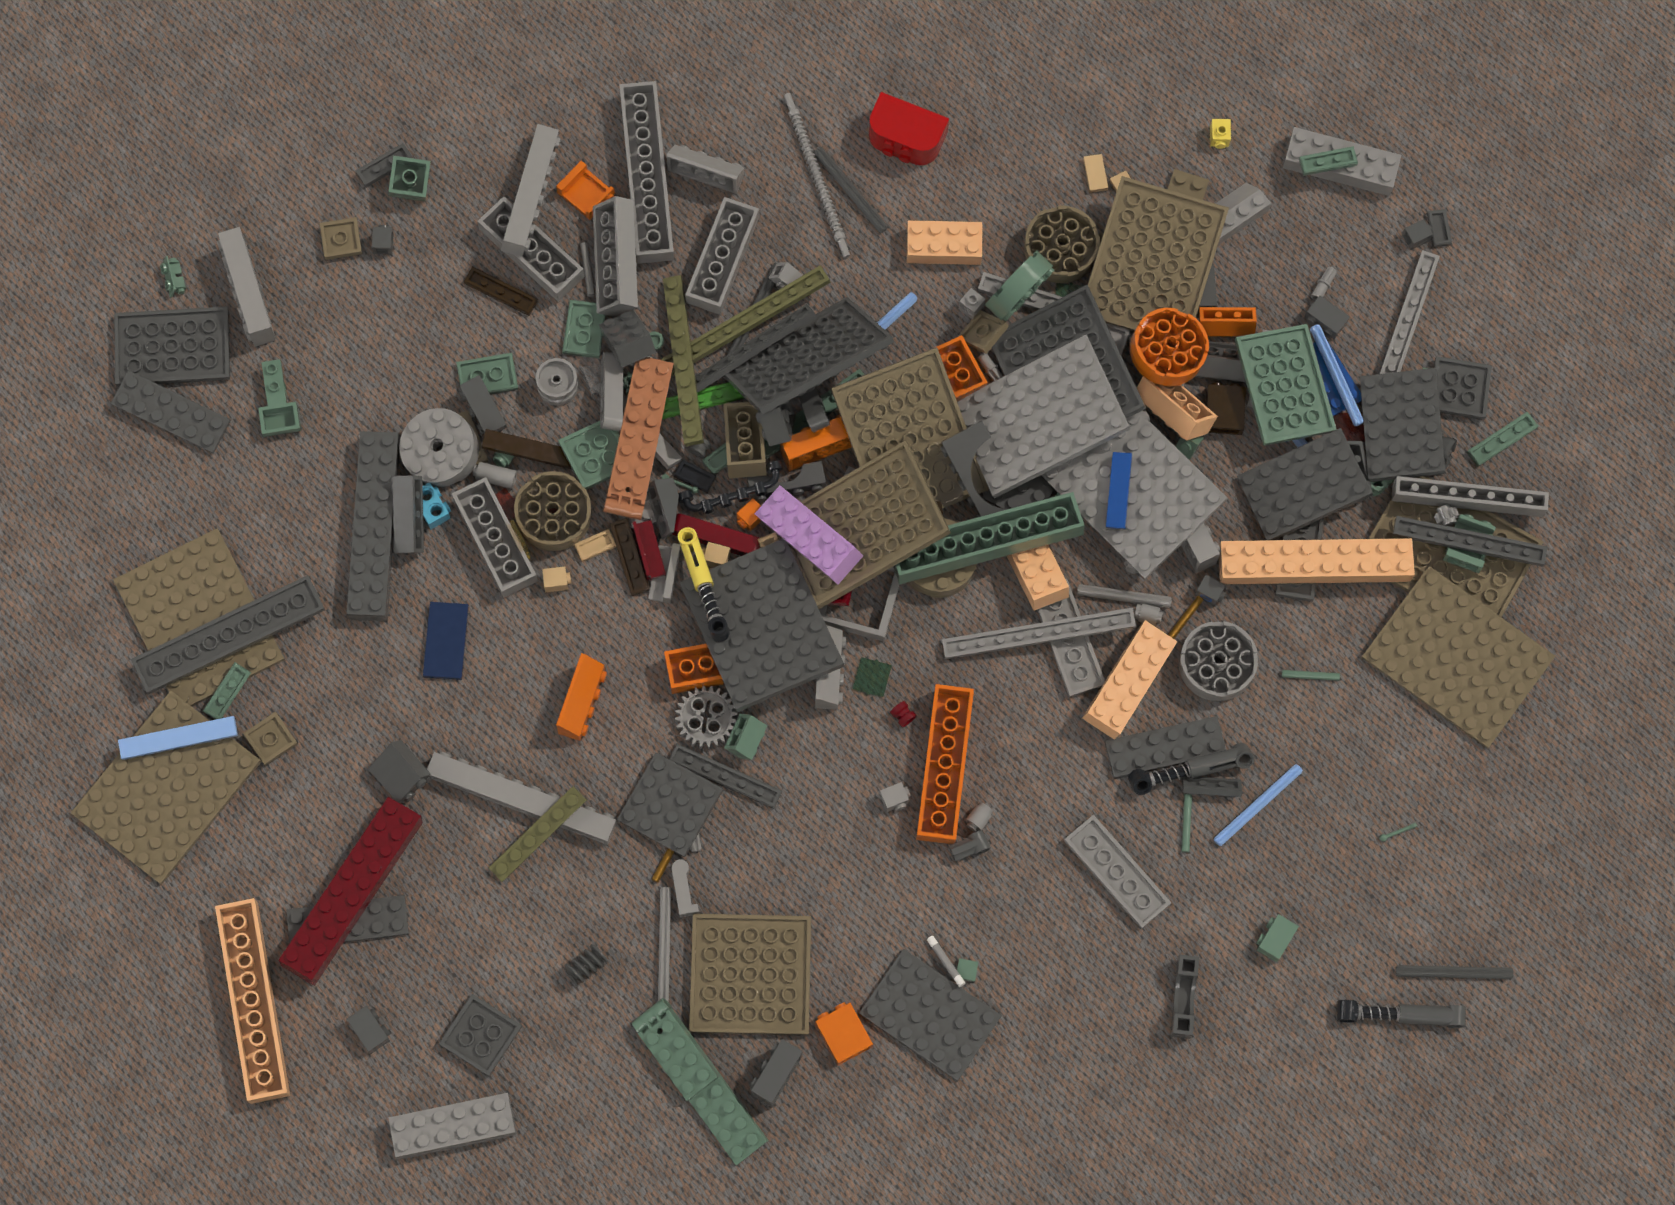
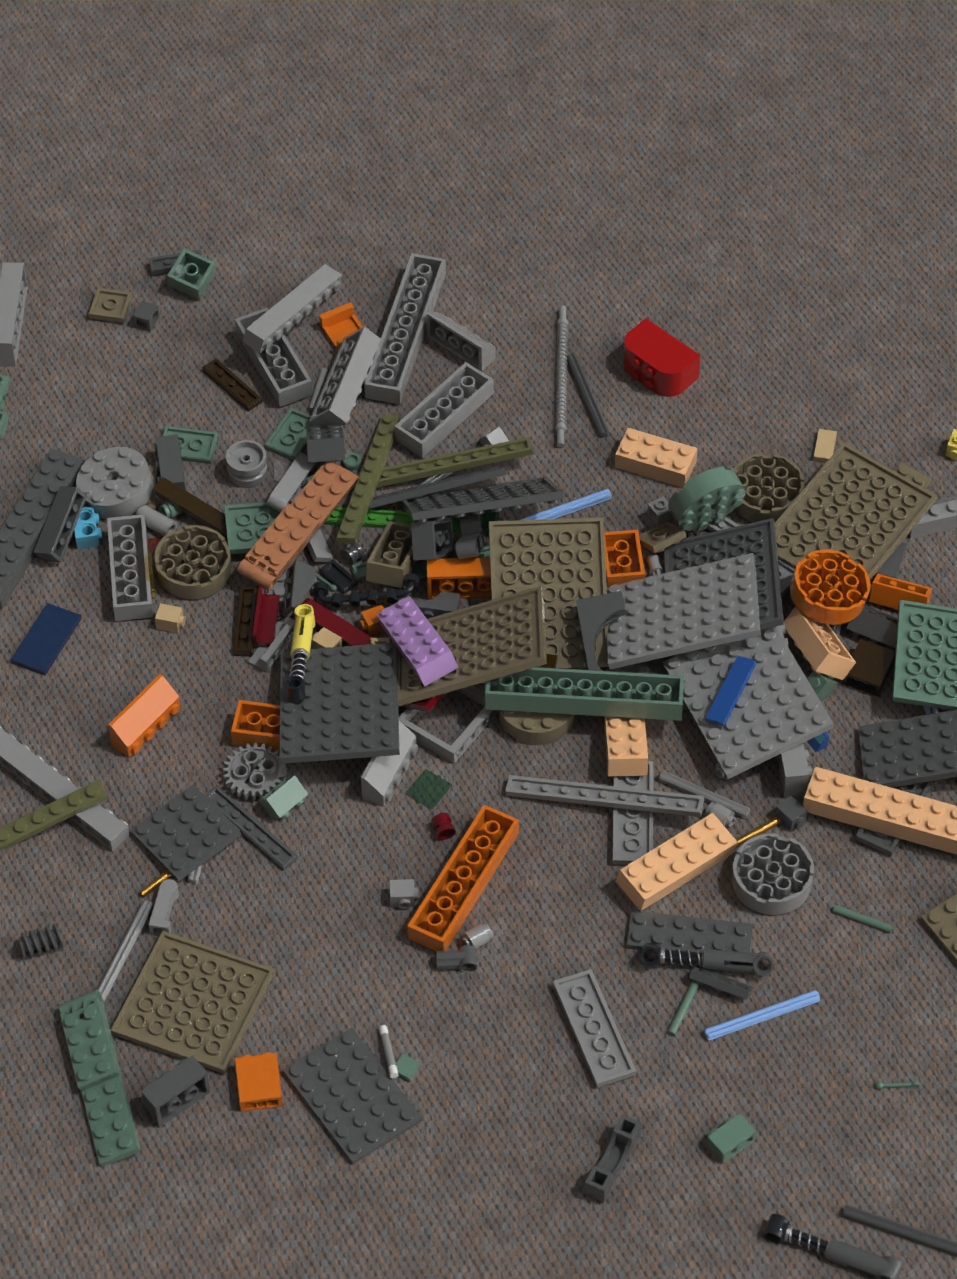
camera: 25 degrees right, 20 degrees down
(595, 545) = (219, 604): tan tile -> none

